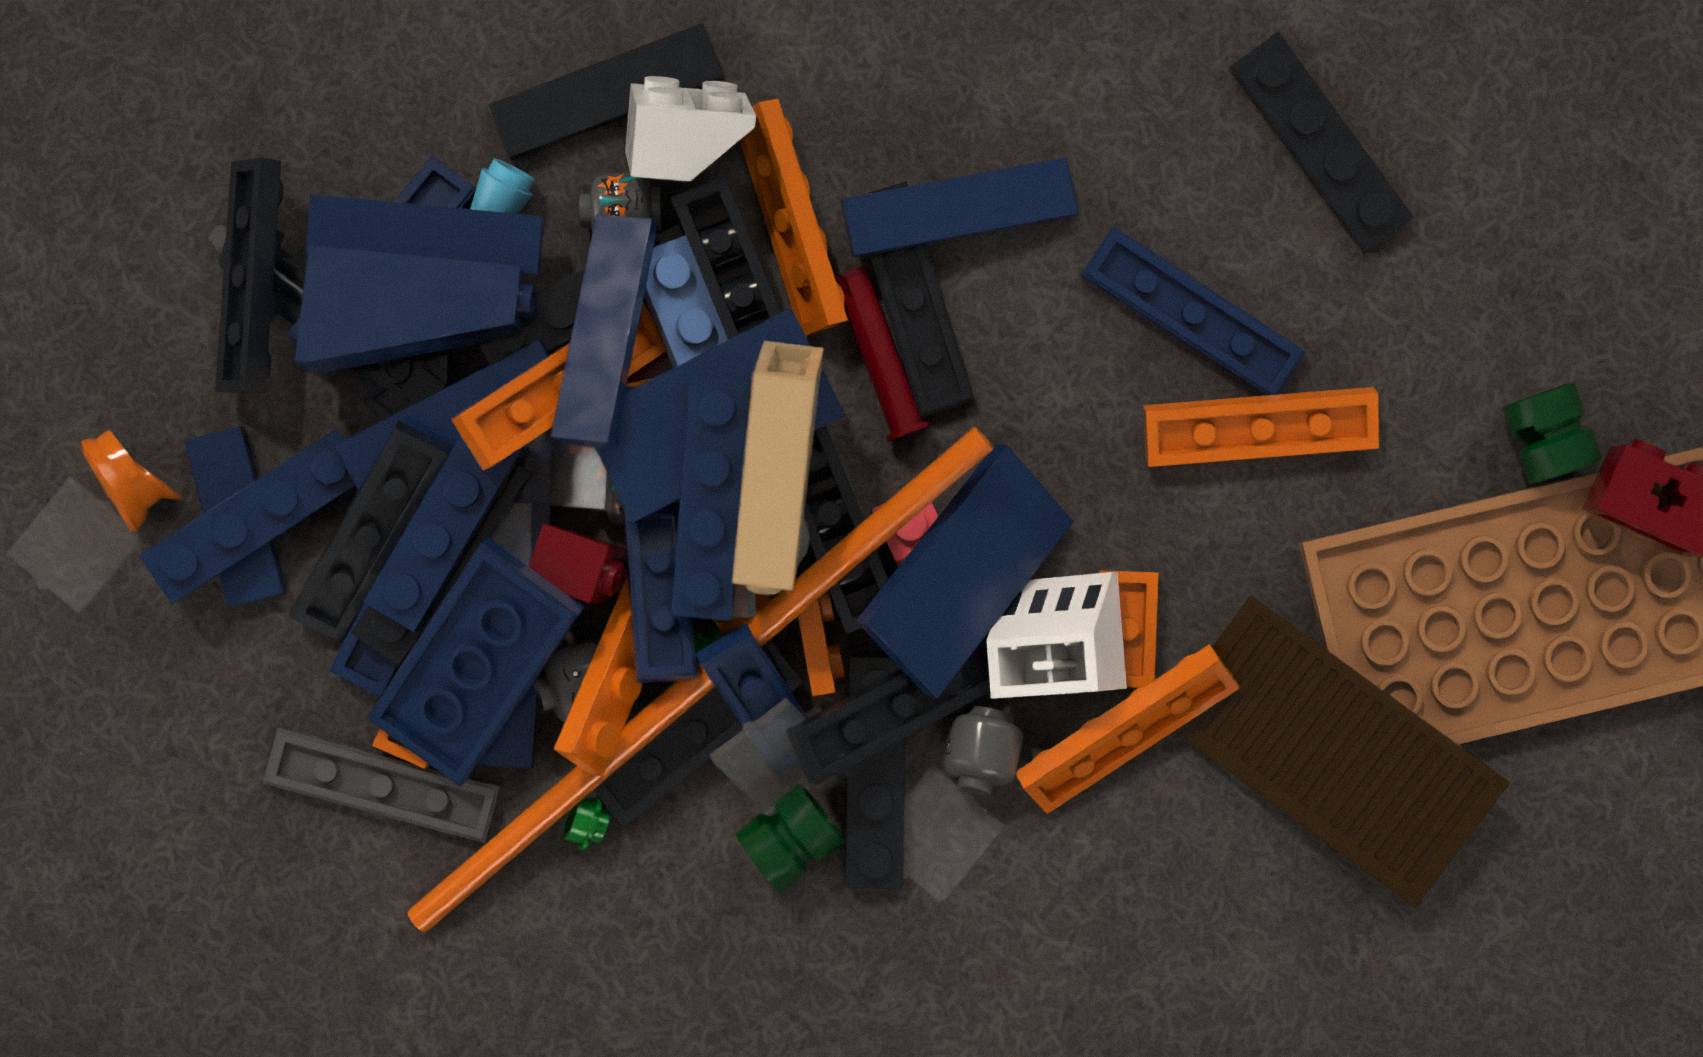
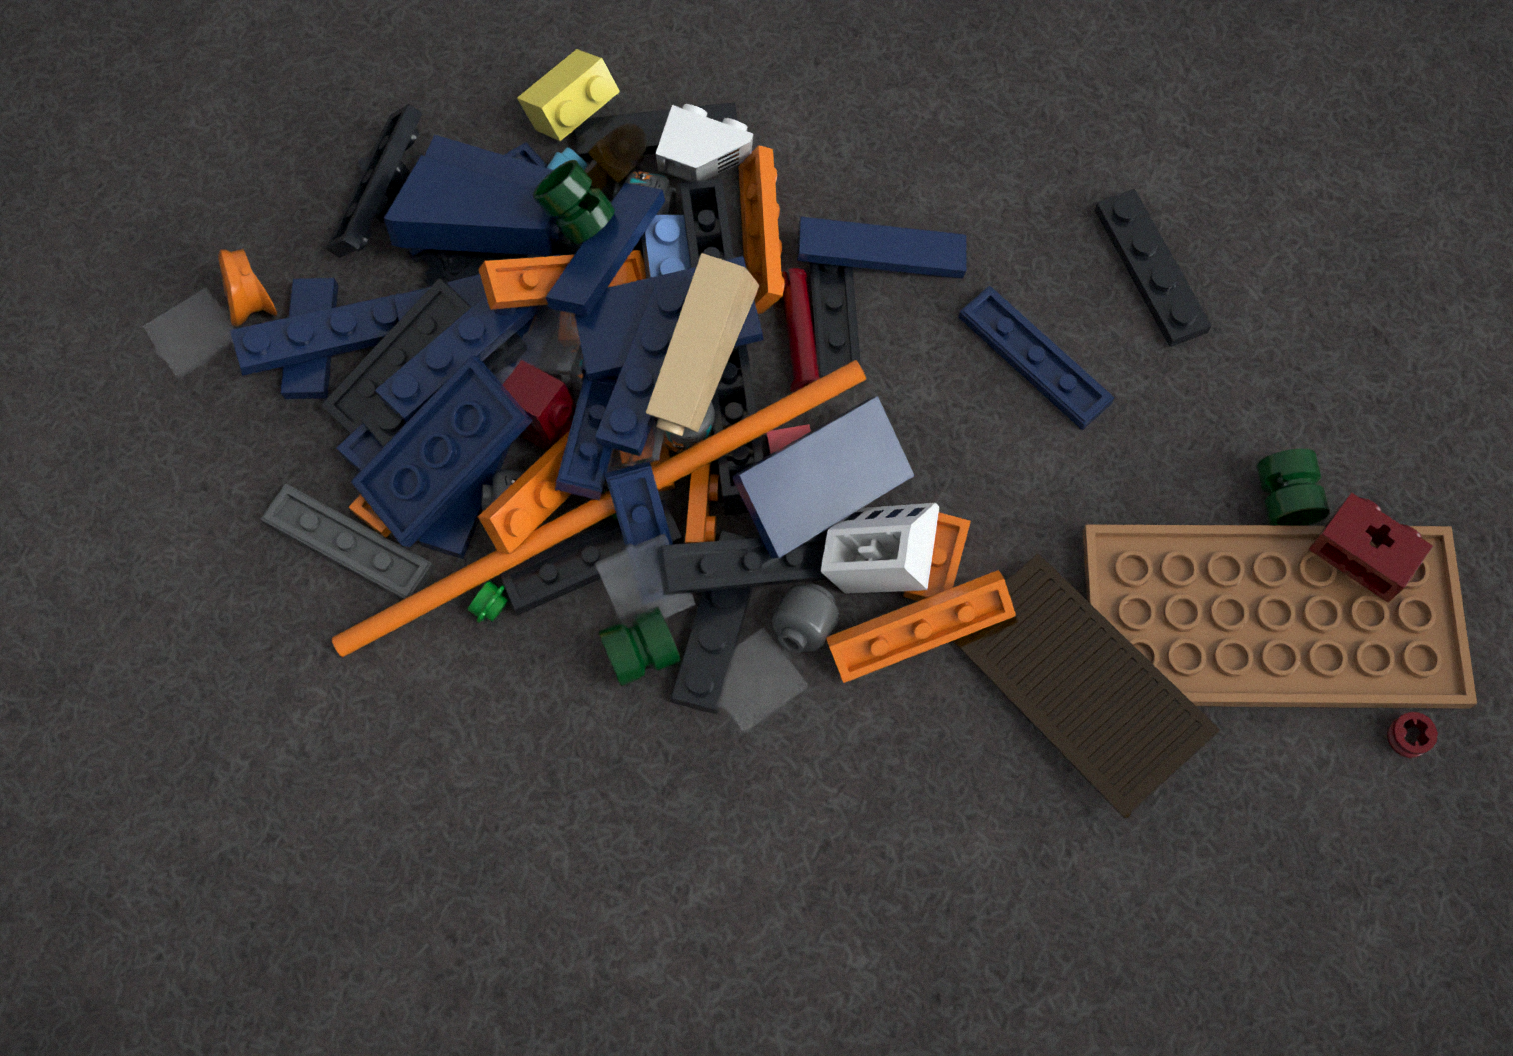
camera: 20 degrees right, 20 degrees down
(471, 74) = (568, 94): none -> light yellow brick
(544, 282) = (578, 207): none -> dark green wheel
(568, 170) = (616, 155): none -> dark brown hips
(1261, 426) = (1071, 439): orange plate -> none

